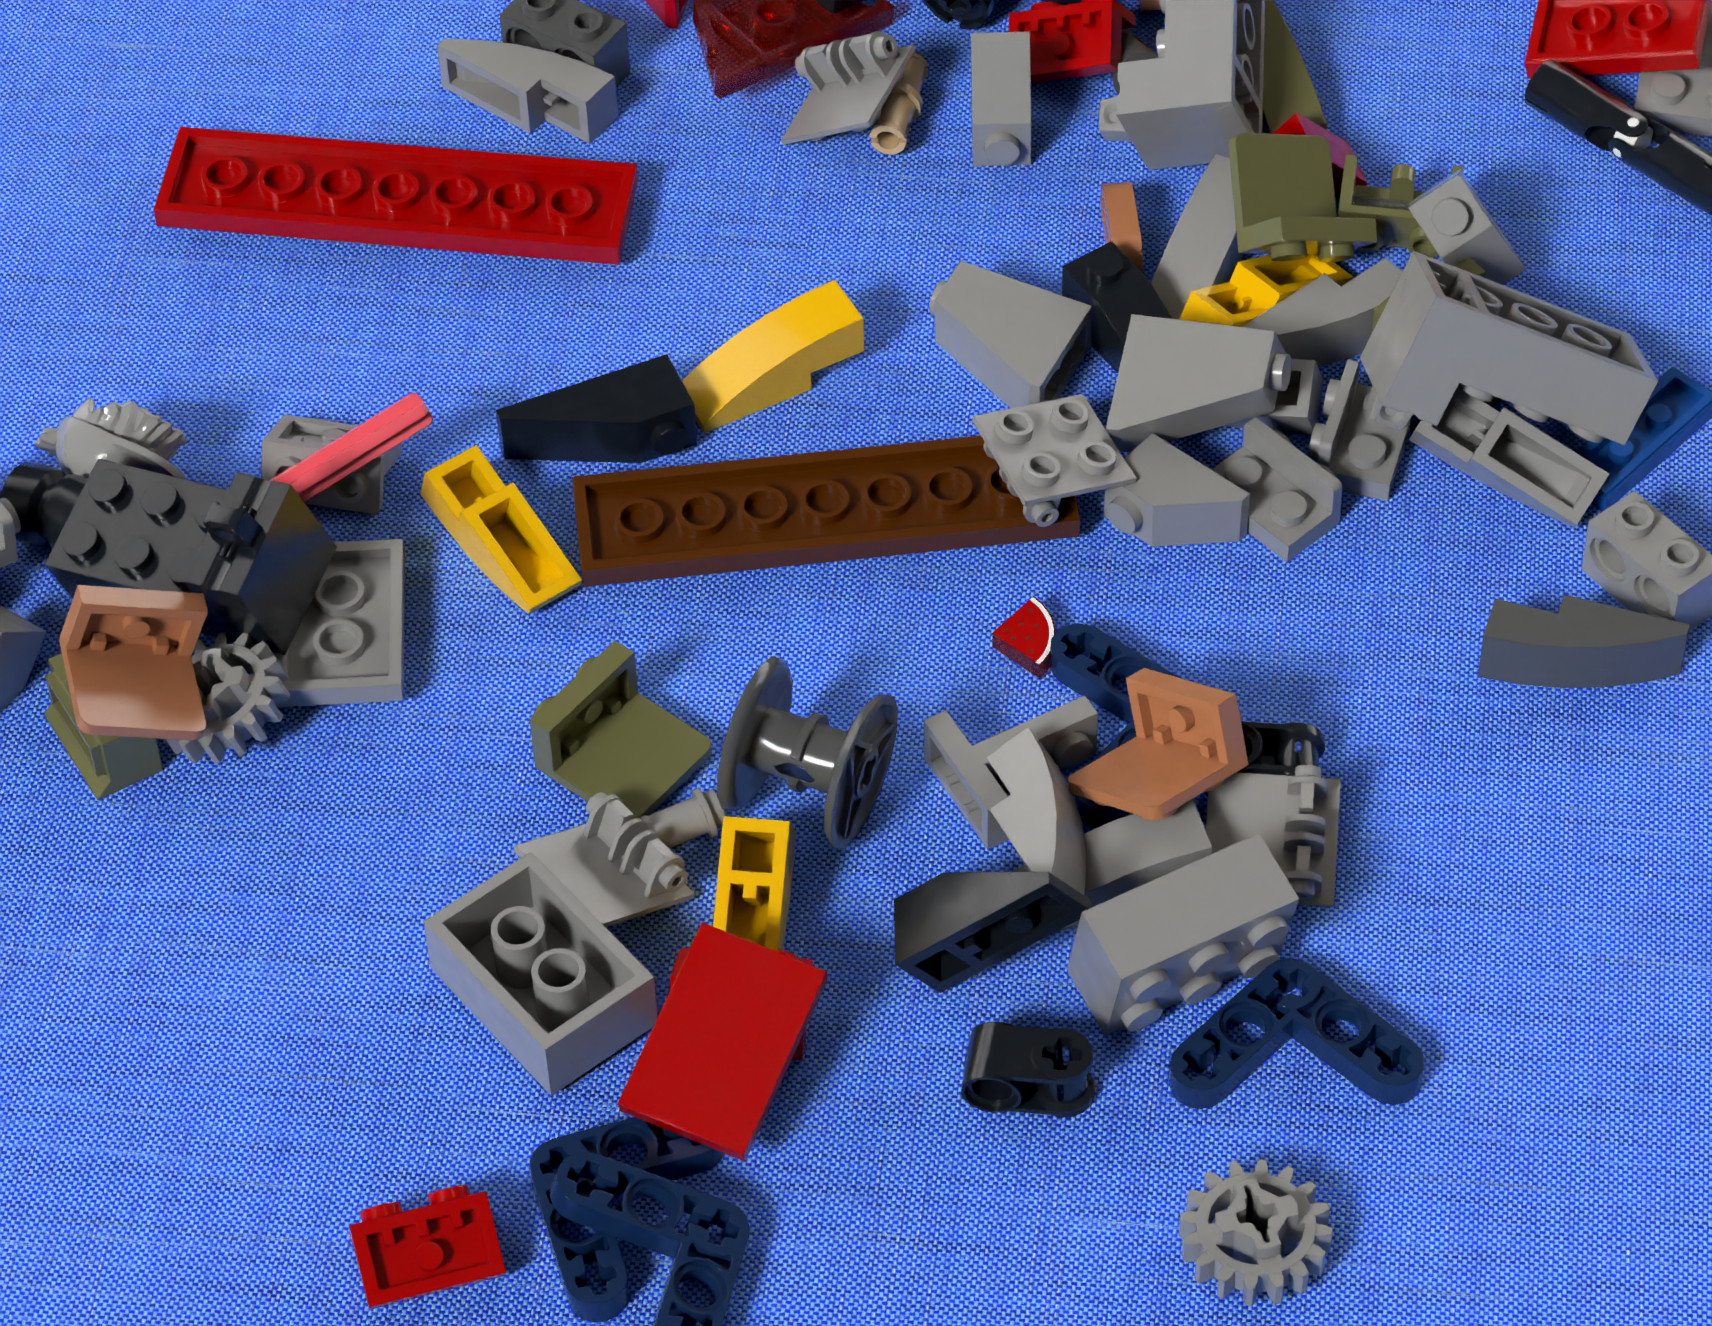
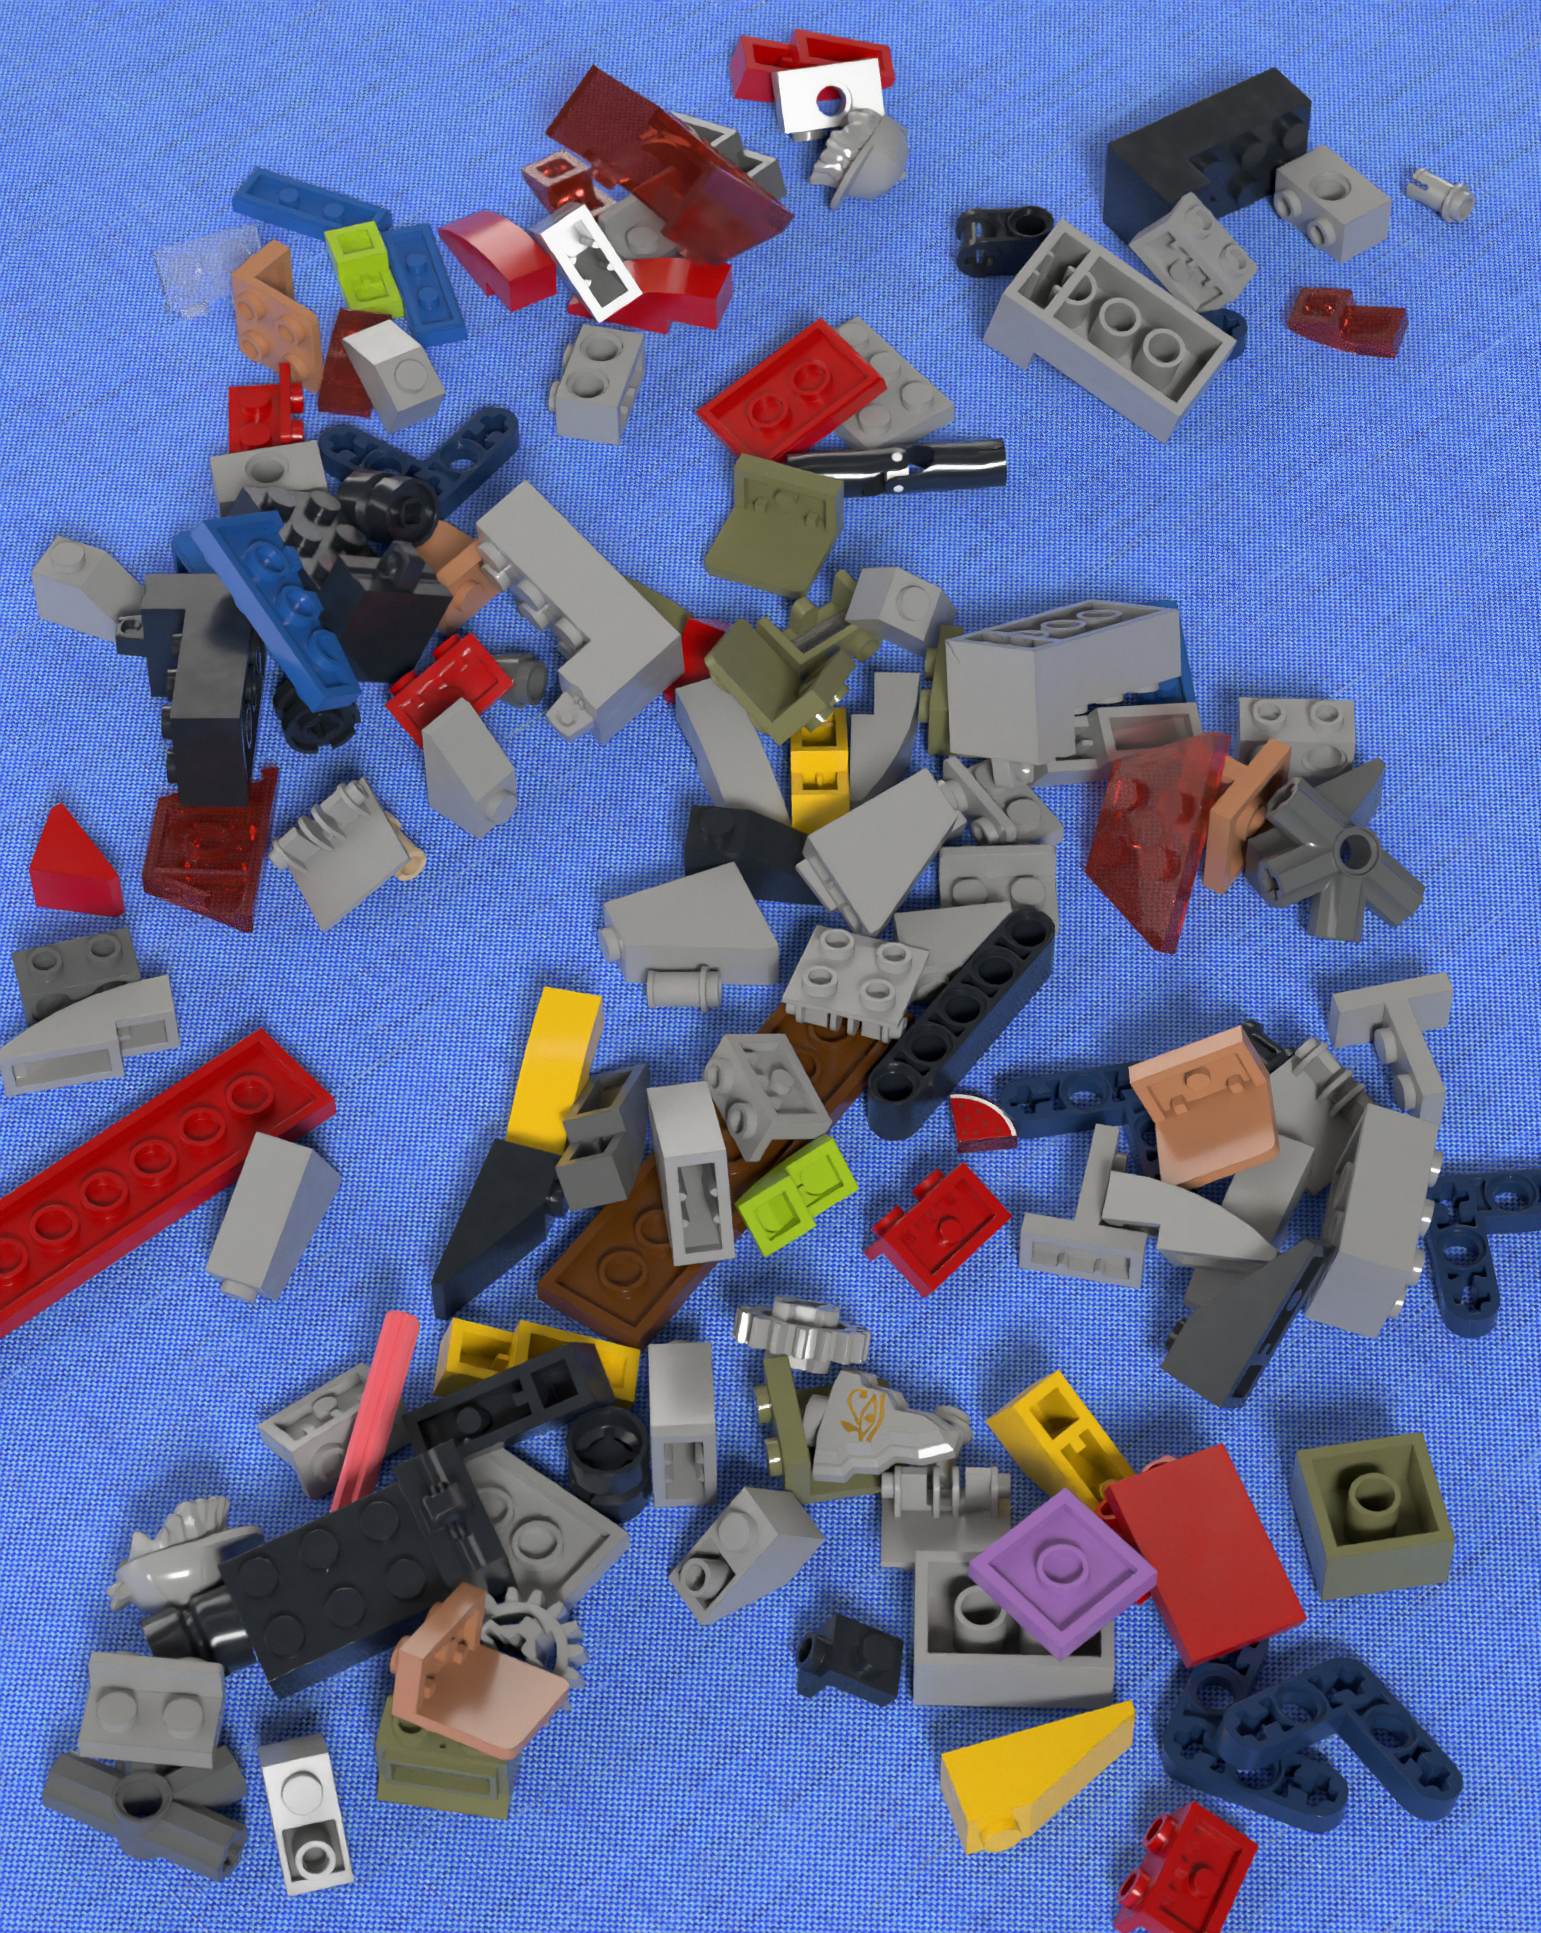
camera: 50 degrees left, 0 degrees up
(417, 892) = (851, 1660): none -> black bracket
(425, 1081) = (1020, 1780): none -> yellow slope
(426, 530) = (514, 1403): none -> black slope
(446, 629) = (609, 1462): none -> black wheel
(457, 767) = (746, 1553): none -> light grey slope
(469, 288) = (271, 1218): none -> light grey slope
(528, 643) = (682, 1424): none -> light grey slope
(585, 950) = (1062, 1574): none -> medium lavender plate
(631, 753) = (871, 1429): none -> light grey rock
(679, 655) = (804, 1332): none -> light grey gear
(748, 419) = (605, 1138): none -> dark grey slope
(751, 478) = (691, 1172): none -> light grey slope
(772, 740) = (990, 1317): dark grey piece -> none
(823, 568) = (793, 1193): none -> lime slope
(888, 476) = (763, 1092): none -> light grey bracket
(890, 1133) = (1372, 1516): none -> olive brick
(910, 669) = (940, 1230): none -> red bracket
(965, 381) = (685, 989): none -> light grey pin
(1021, 1068) = (1381, 1394): black piece -> none
(1109, 555) = (960, 1025): none -> black beam
(1121, 219) = (655, 795): nougat beam -> none
(1421, 534) = (1156, 832): none -> clear red wing
(1428, 822) = (1395, 1019): none -> light grey bracket
(1476, 115) = (778, 527): none -> olive bracket
(1516, 563) = (1241, 811): none -> nougat bracket
(1516, 692) = (1316, 868): none -> dark grey piece

